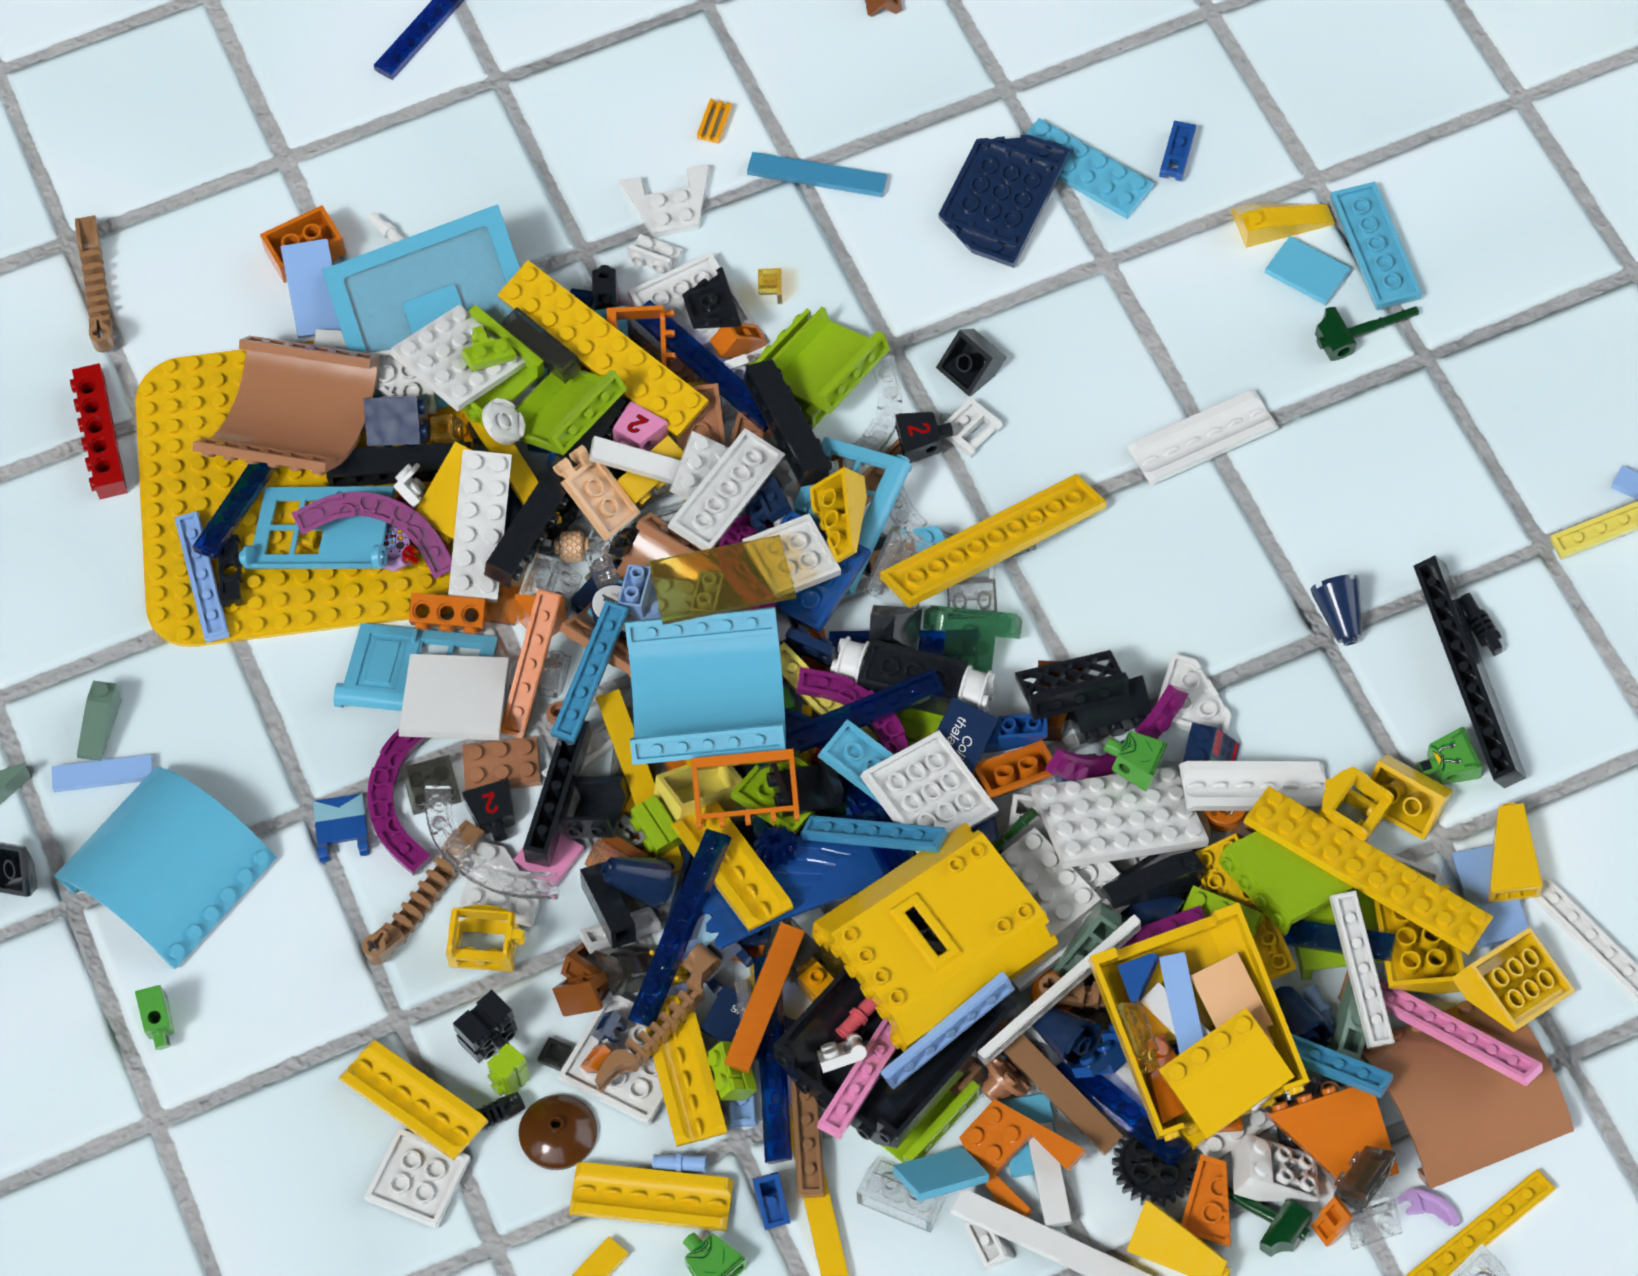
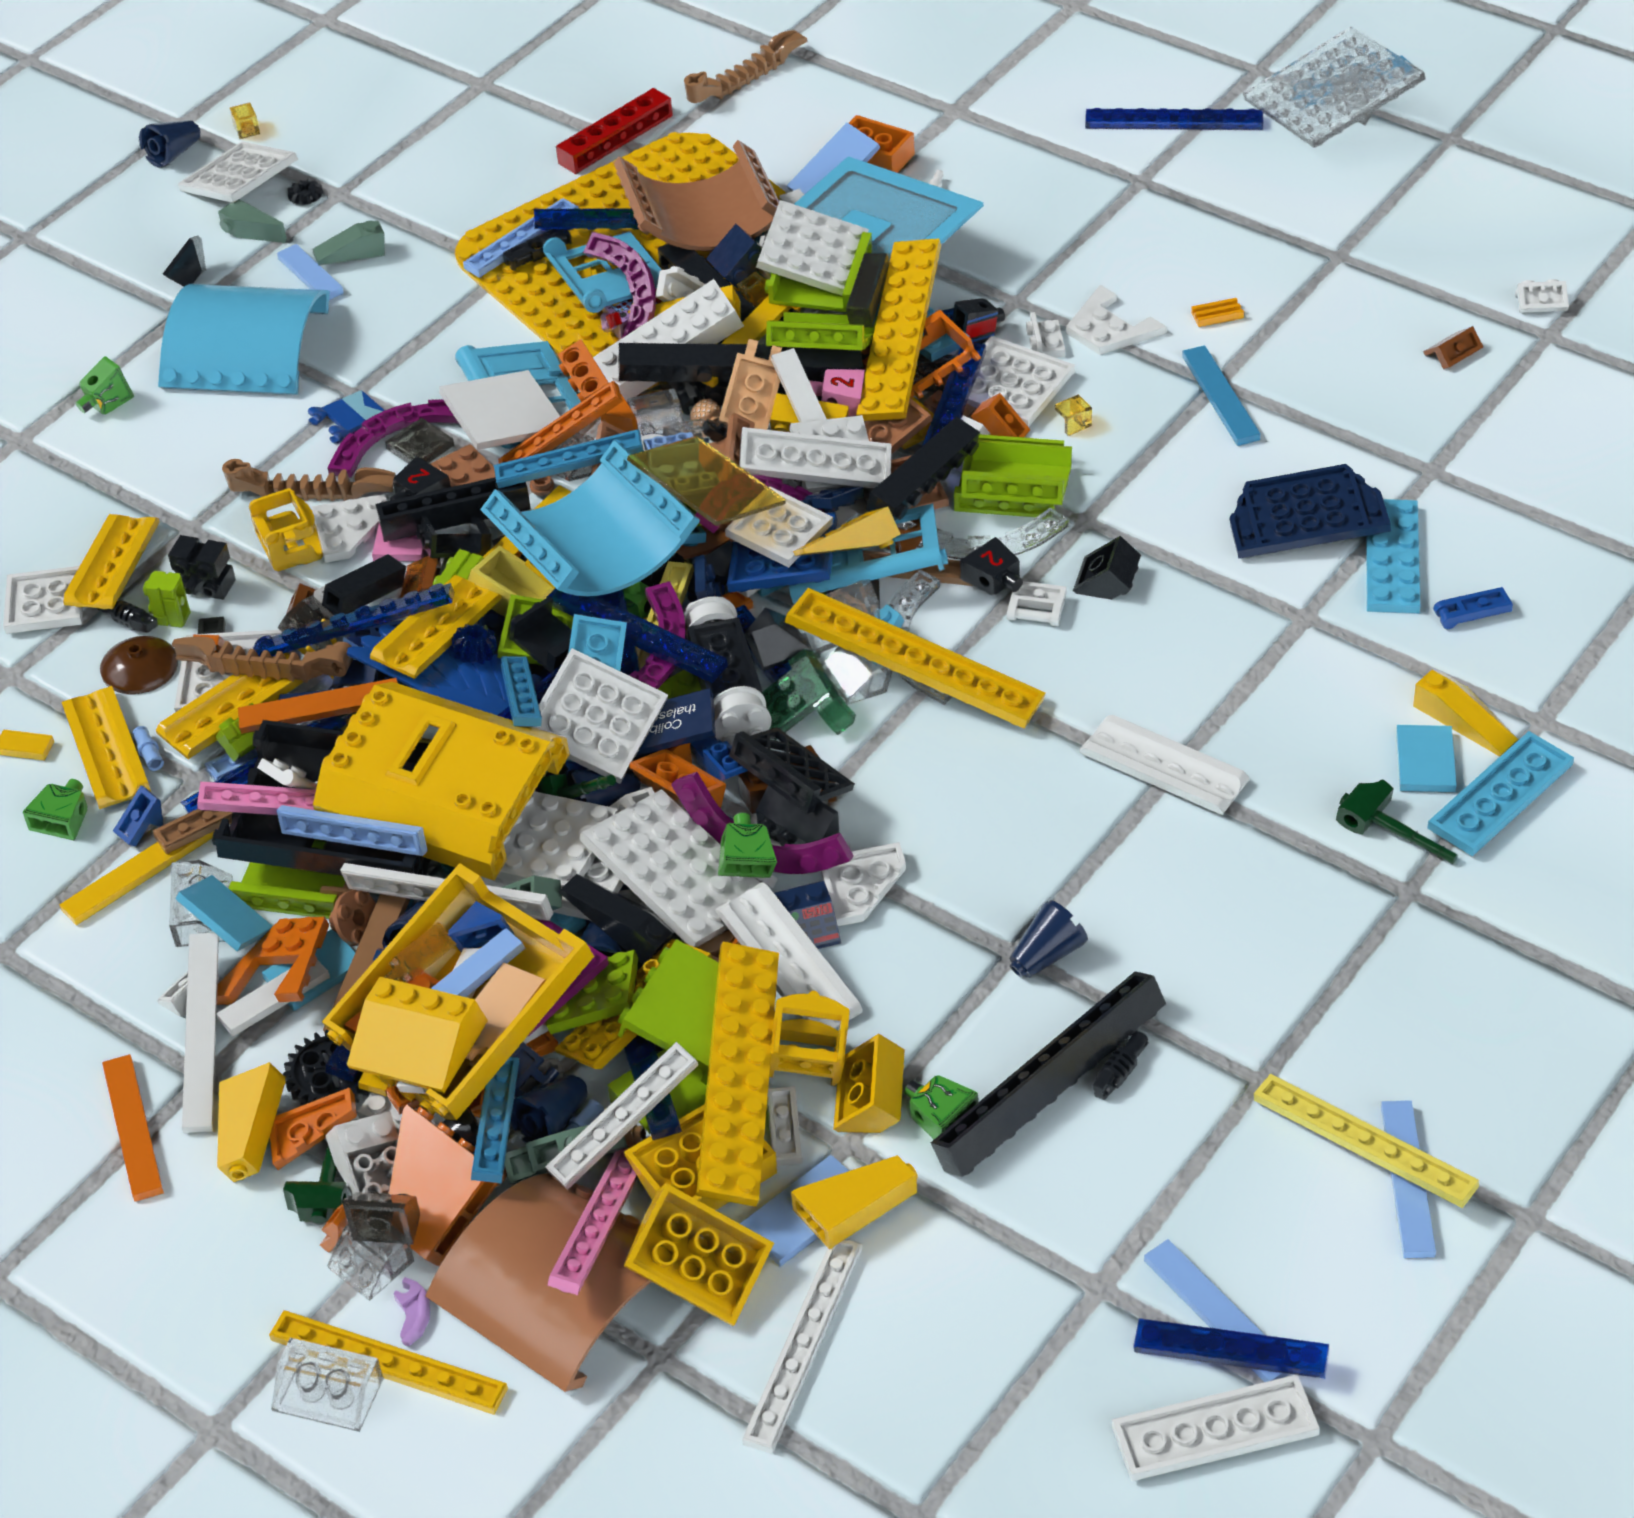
camera: 60 degrees right, 15 degrees down
(472, 864) = (347, 485): clear plate -> none
(486, 351) = (827, 256): lime hinge -> none
(503, 421) = (776, 302): white tile -> none
(580, 994) = (270, 602): dark orange panel -> none
(606, 1027) = (244, 635): dark blue tile -> none
(641, 878) = (394, 576): dark blue cone -> none
(712, 303) = (1014, 378): black wing -> none
(714, 762) = (484, 565): orange hinge -> none

